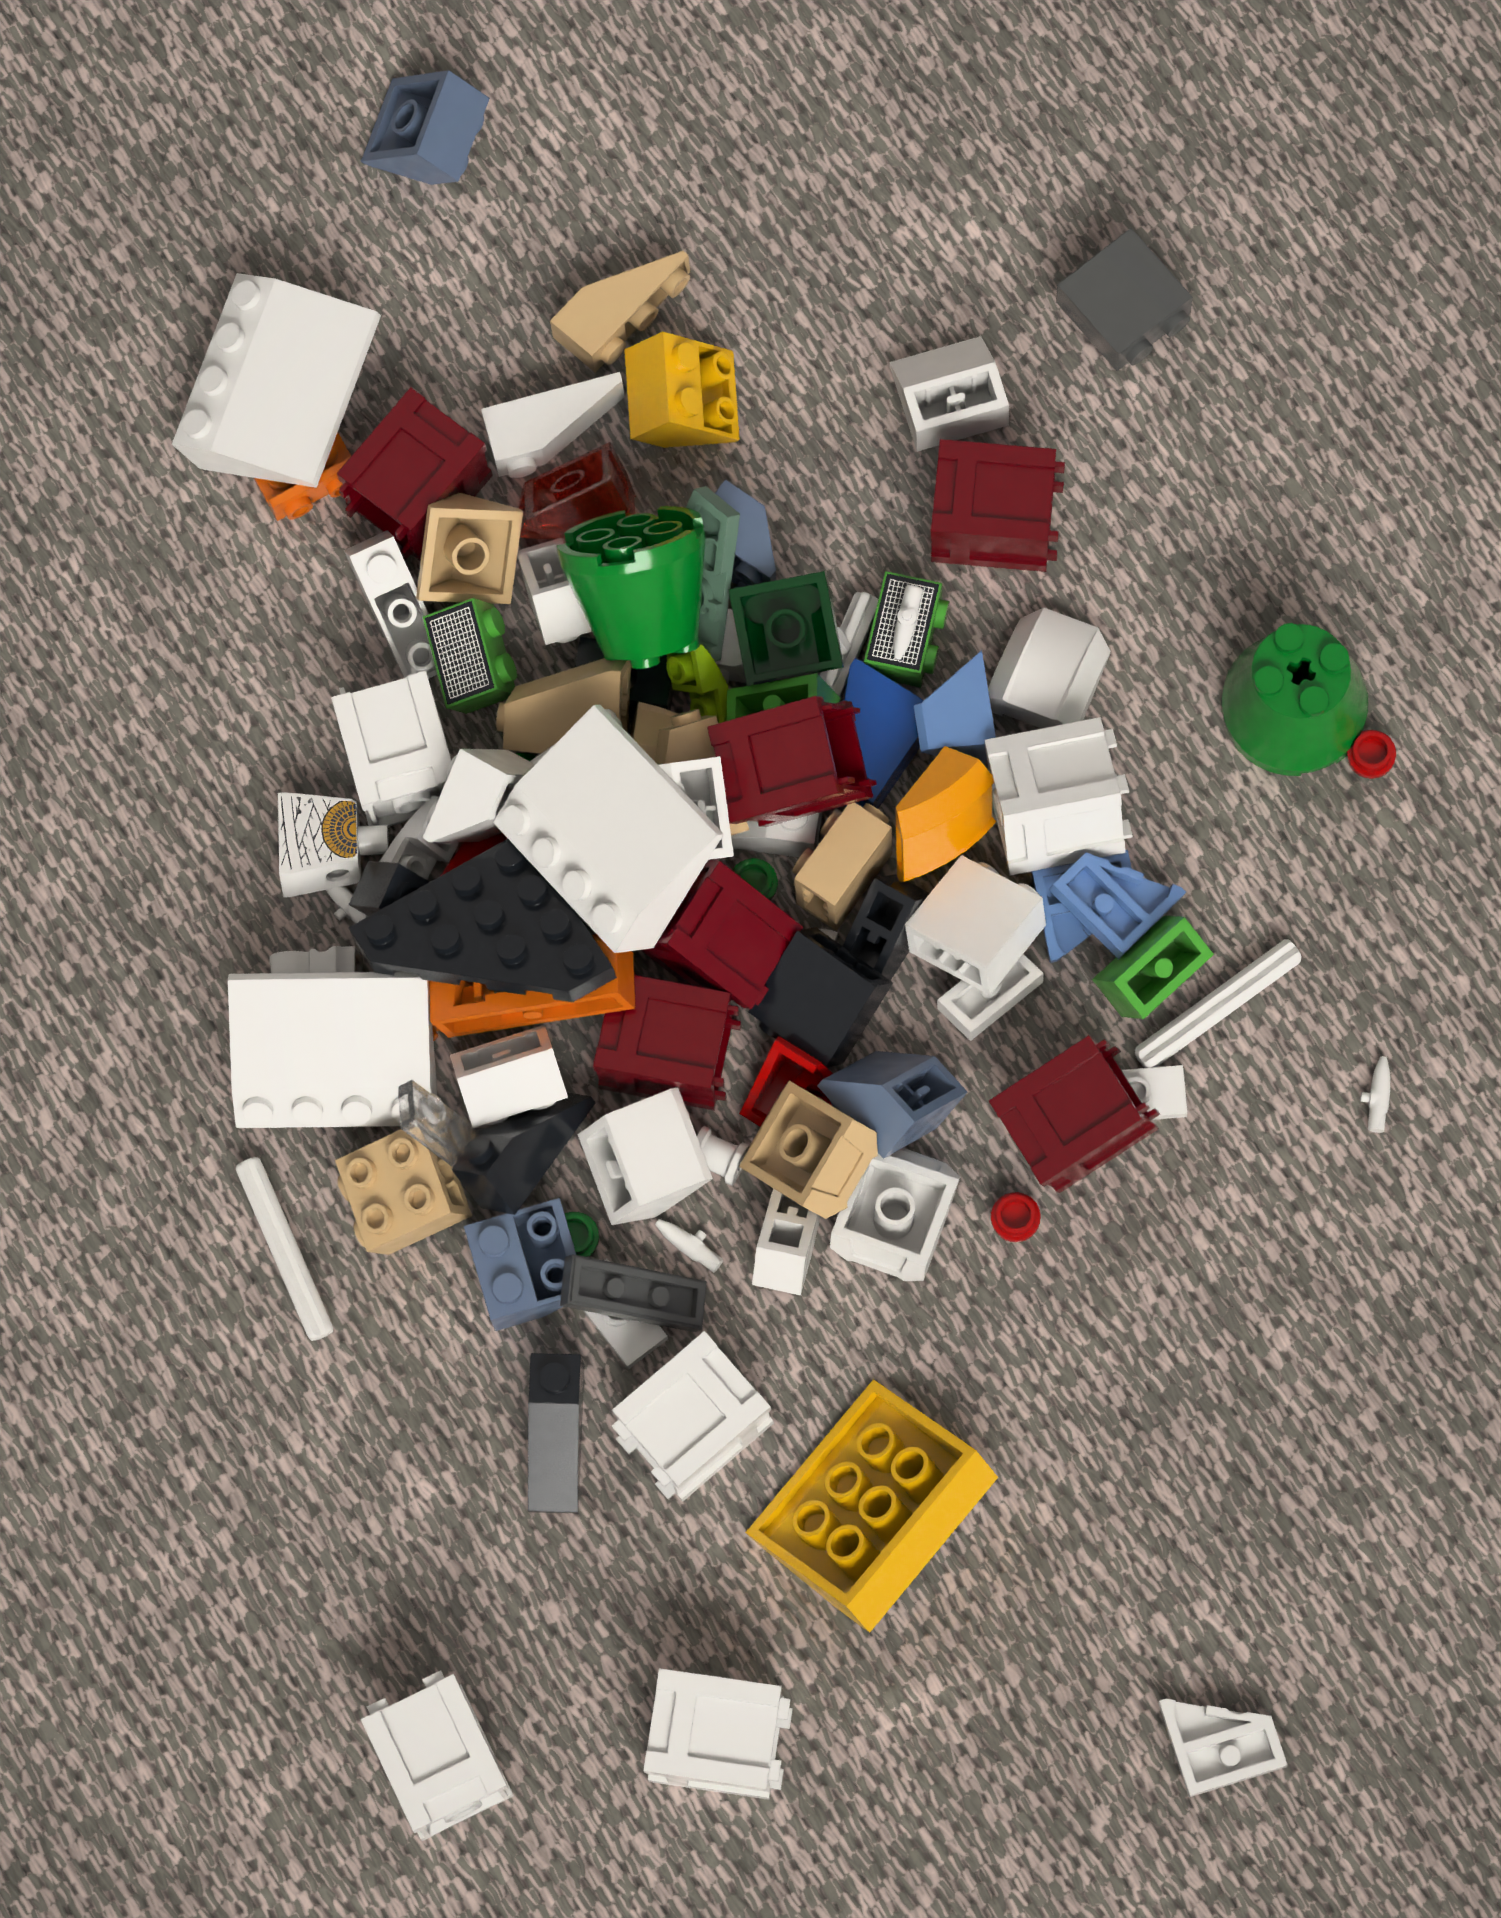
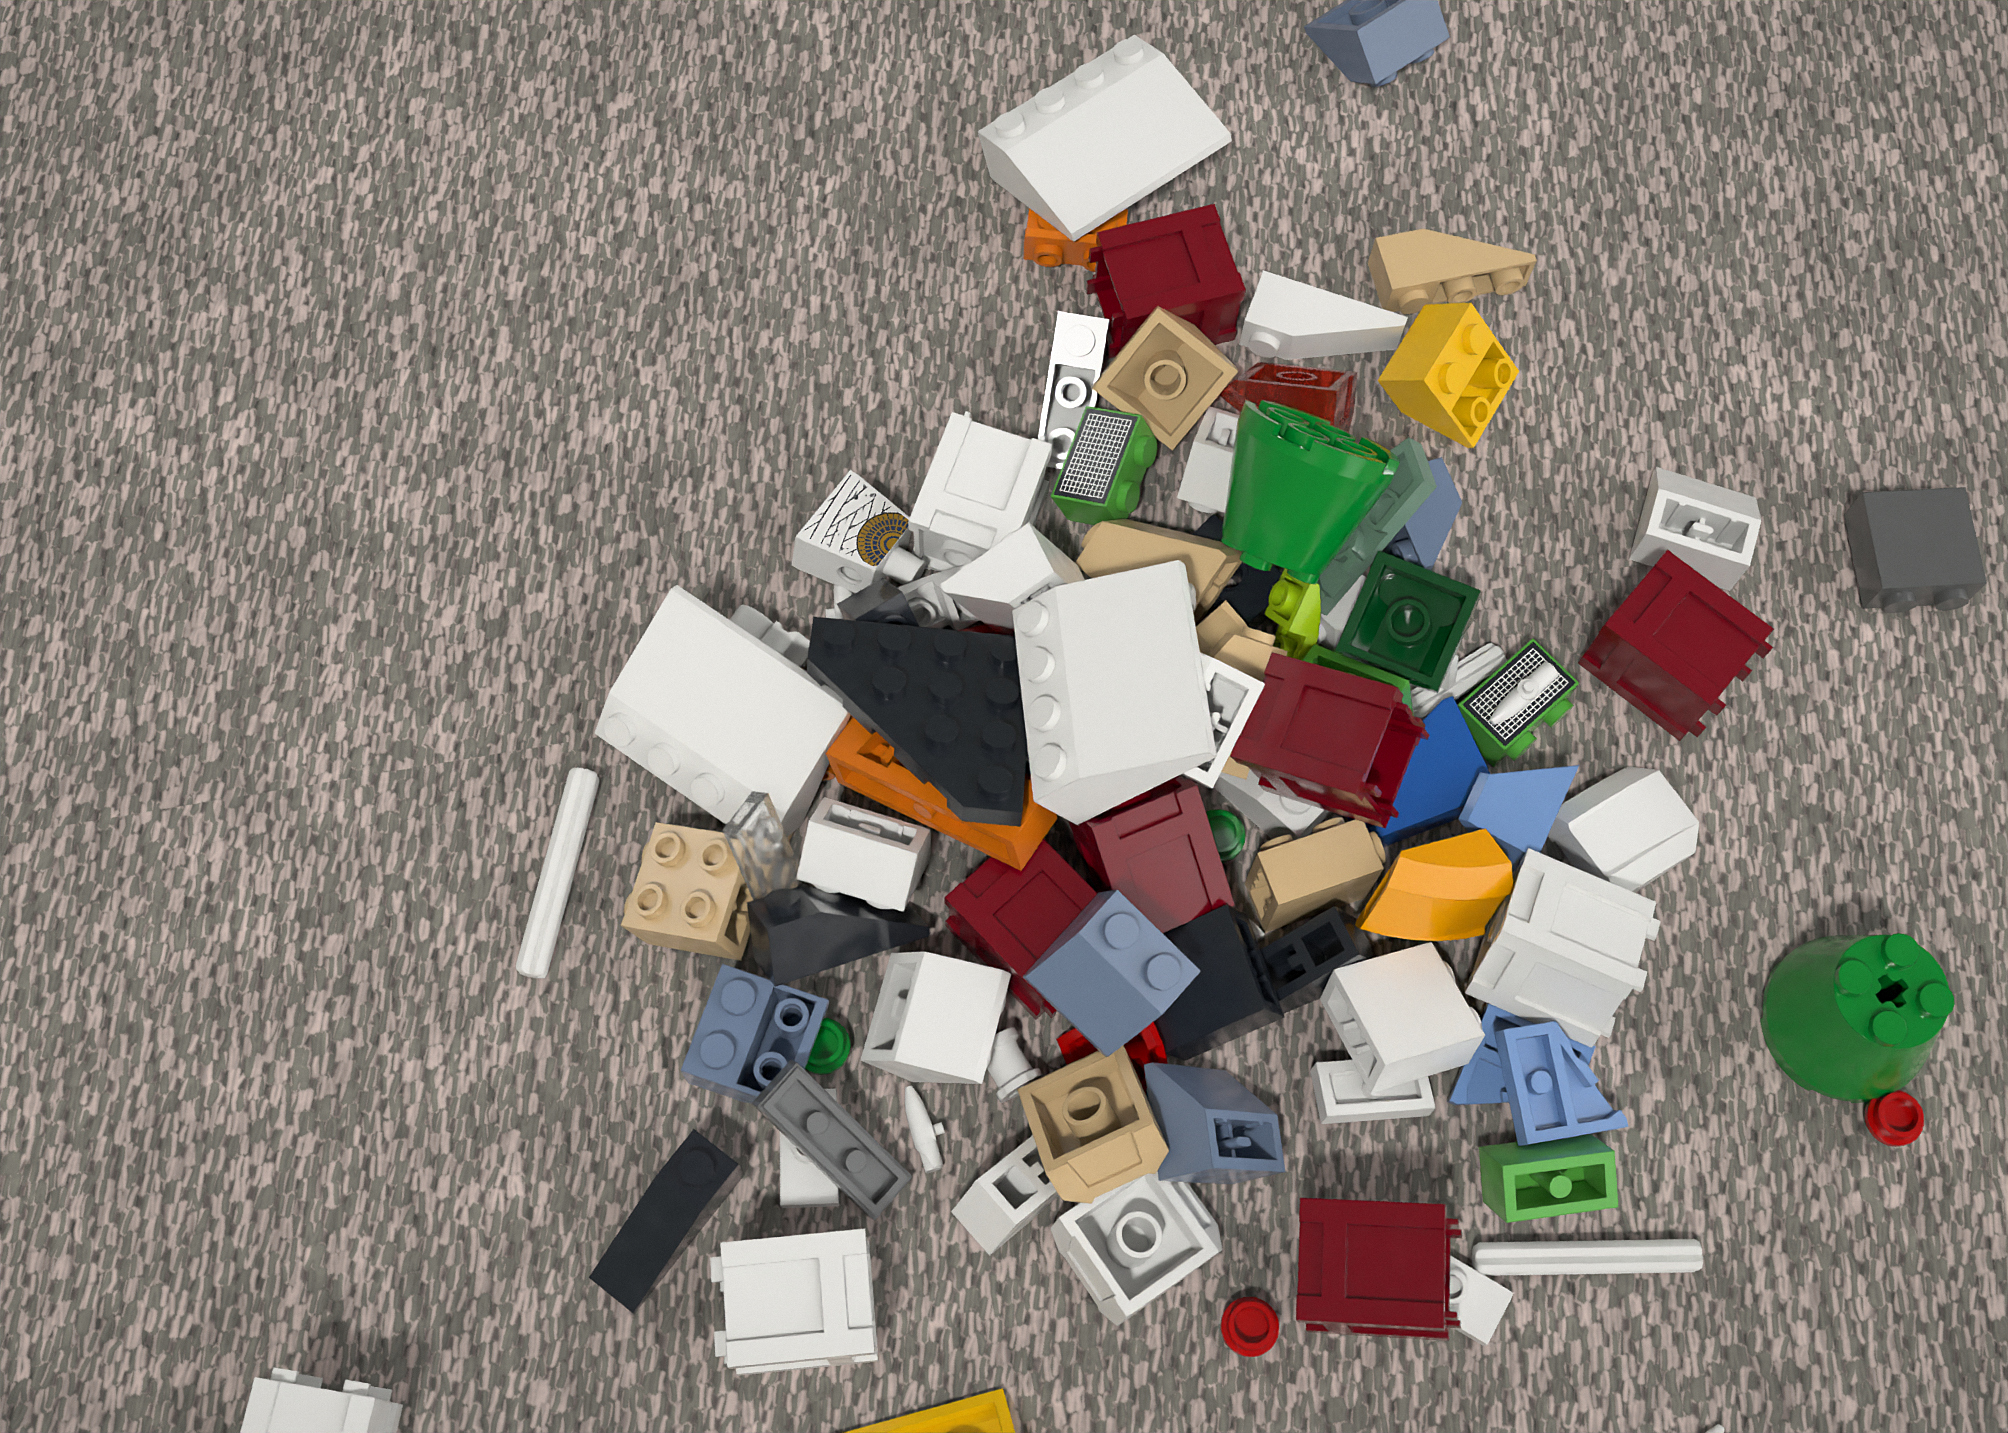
camera: 25 degrees right, 5 degrees down
(750, 1036) = (1111, 972): none -> sand blue slope

